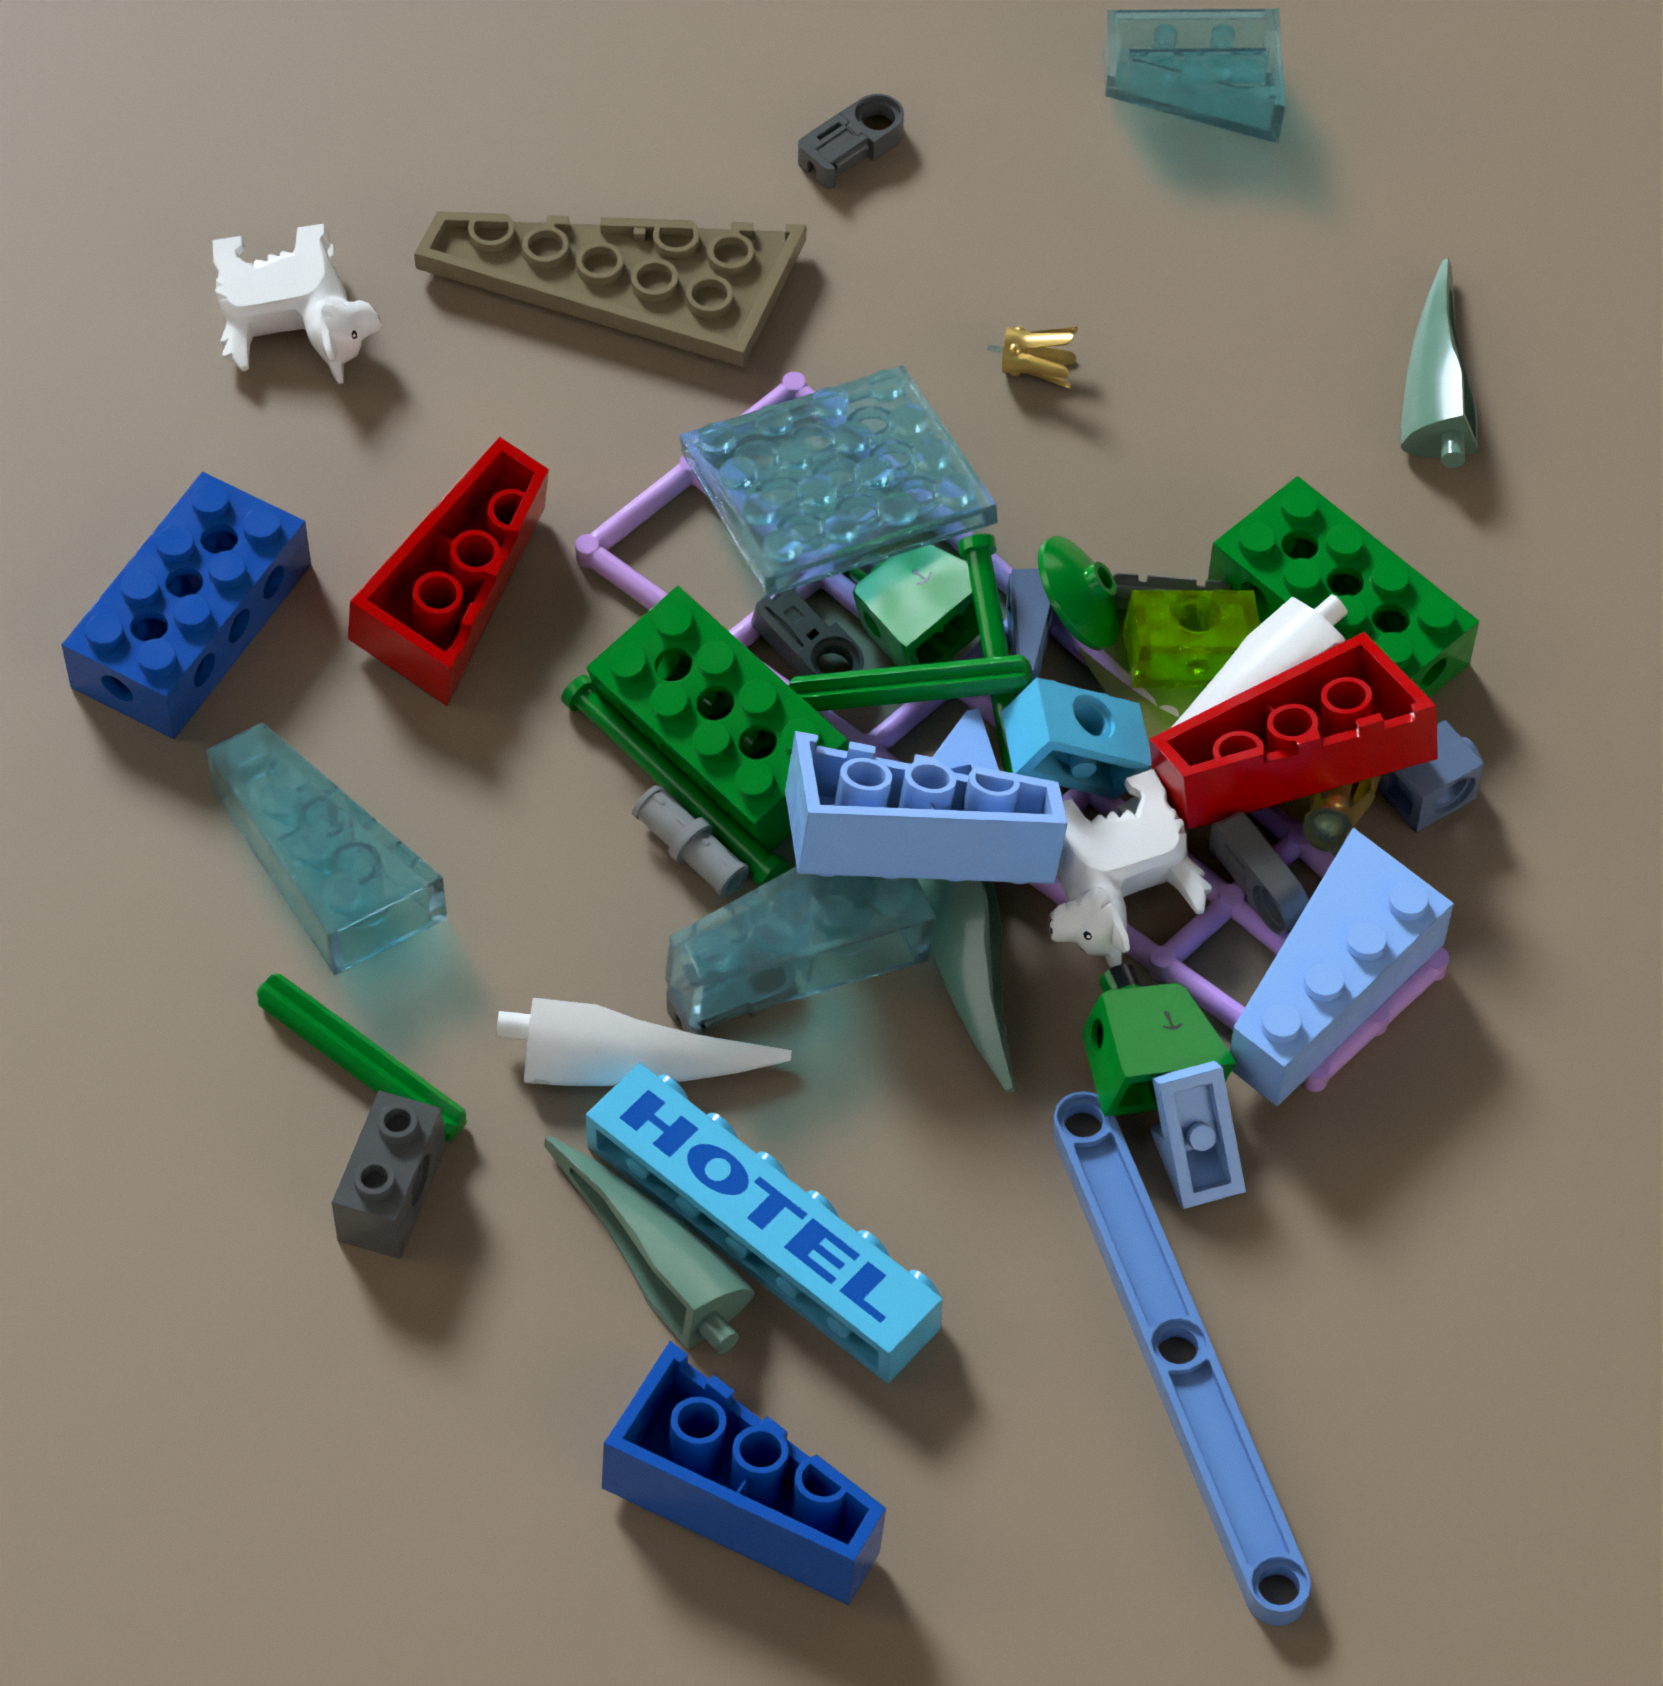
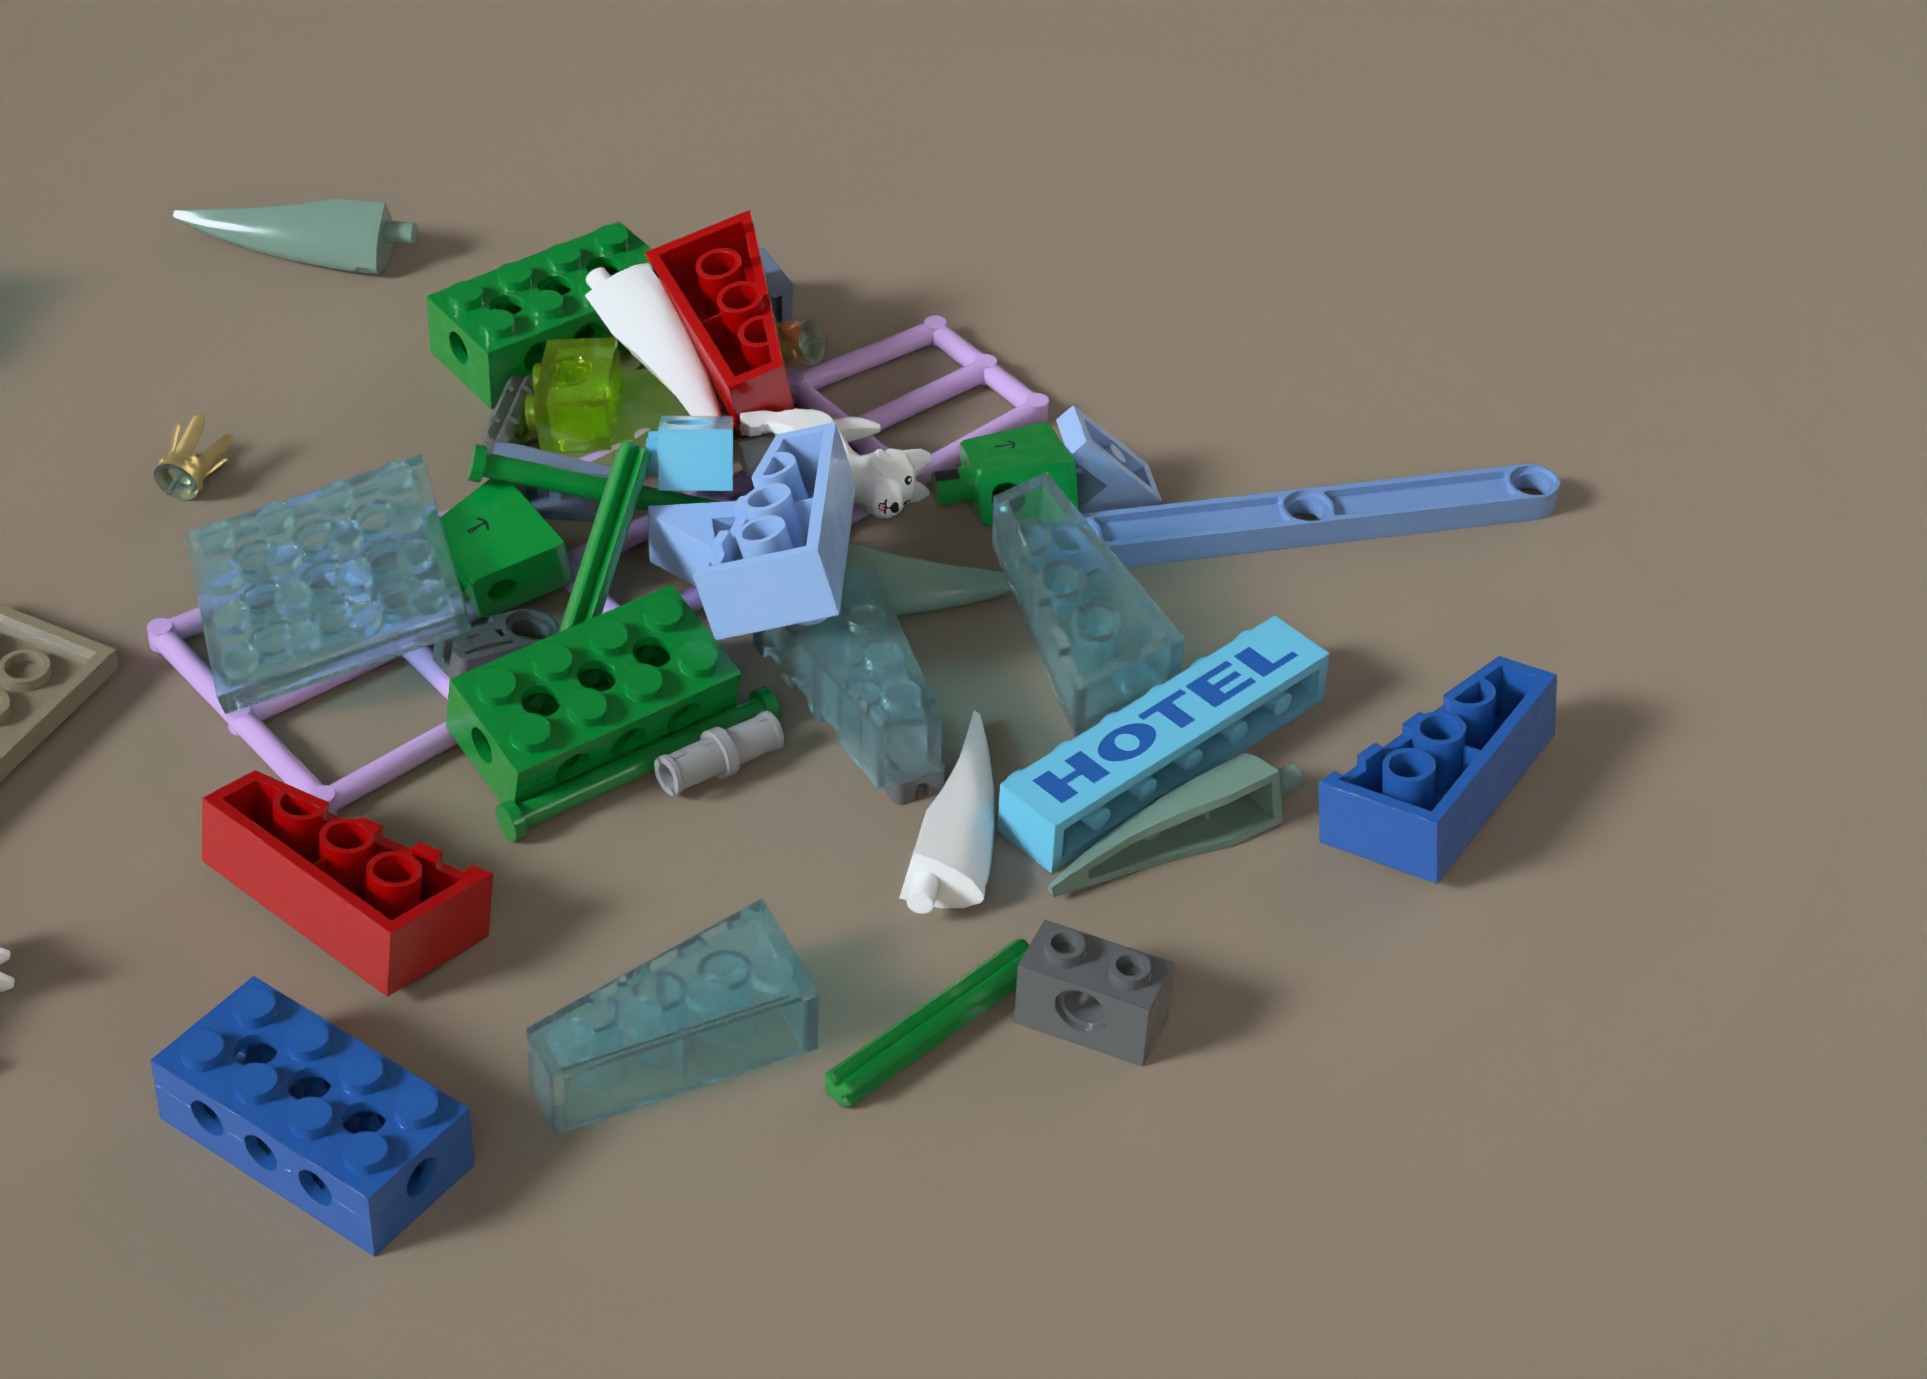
camera: 85 degrees left, 15 degrees down
(923, 1118) = (1081, 605): none -> clear light blue wedge
(1079, 592) = (520, 428): green dish -> none
(1259, 871) = (843, 384): dark grey piece -> none
(1339, 964) = (955, 349): light blue wedge -> none

